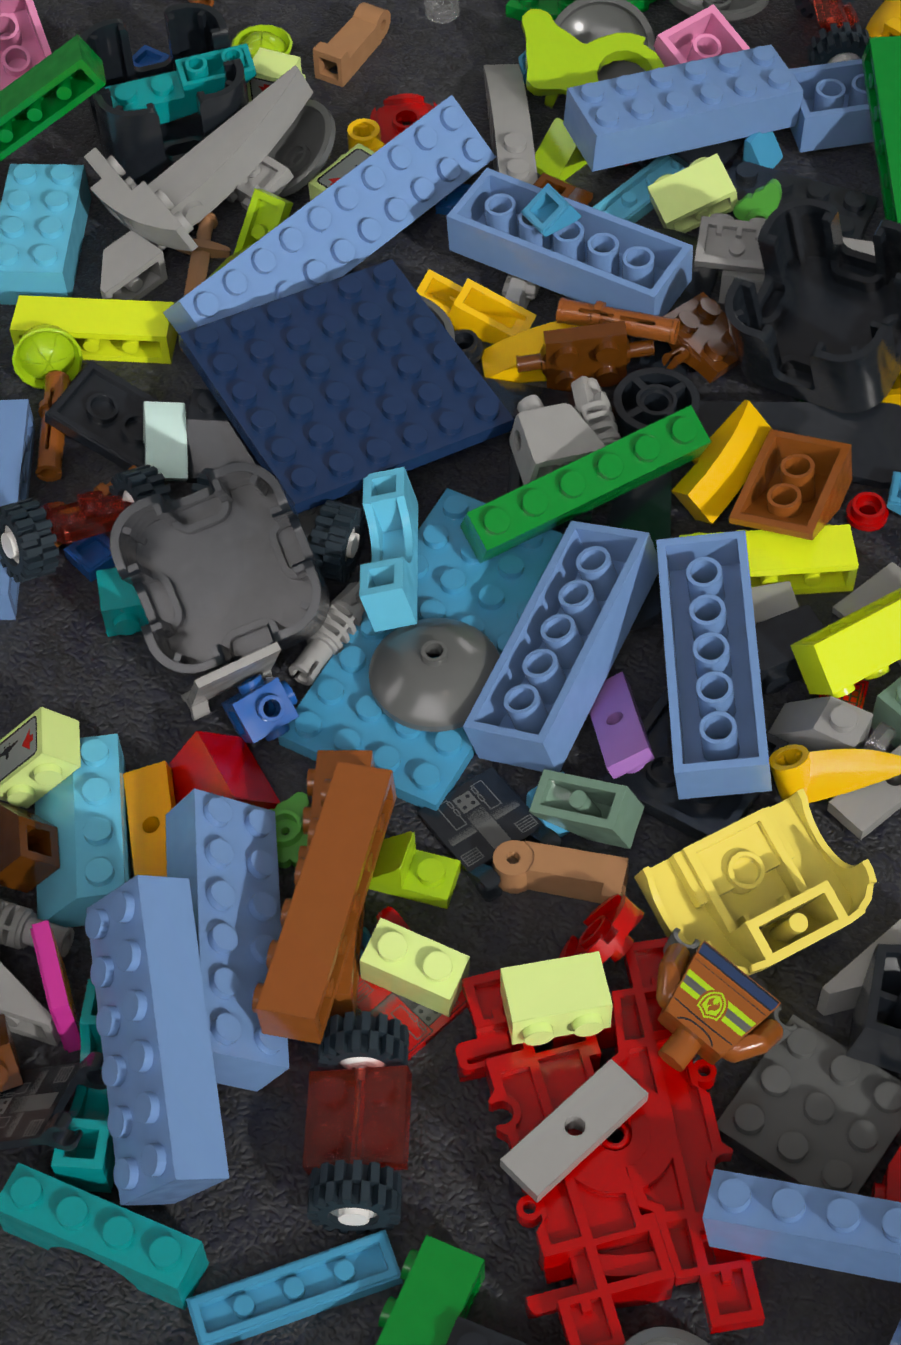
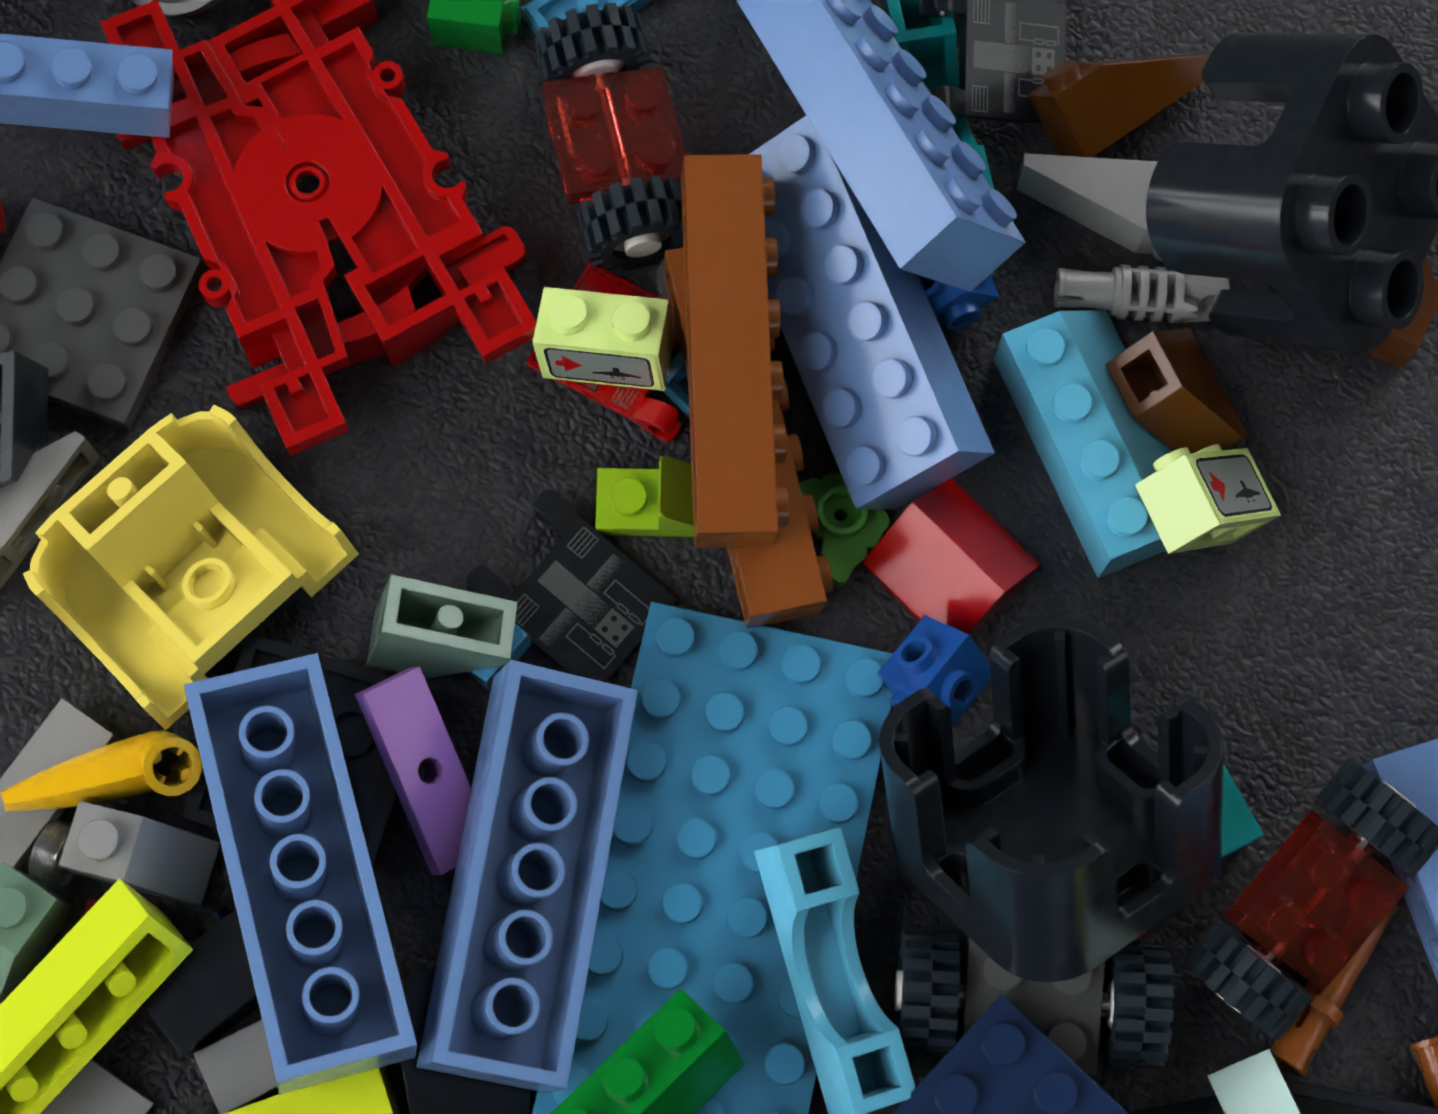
camera: 160 degrees right, 20 degrees up
(56, 986) = (1044, 207): dark pink tile -> none
(148, 800) = (1031, 497): light orange tile -> none
(228, 678) = (963, 672): light grey flag -> none
(343, 615) = (876, 869): light grey hinge -> none
(426, 690) = (701, 844): dark grey dish -> none
(556, 998) = (408, 301): yellowish green brick -> none
(560, 871) = (454, 544): medium nougat leg -> none
(594, 1109) = (368, 124): light grey tile -> none
(607, 930) = (356, 454): red plate -> none
(713, 1007) = (211, 334): dark orange torso -> none

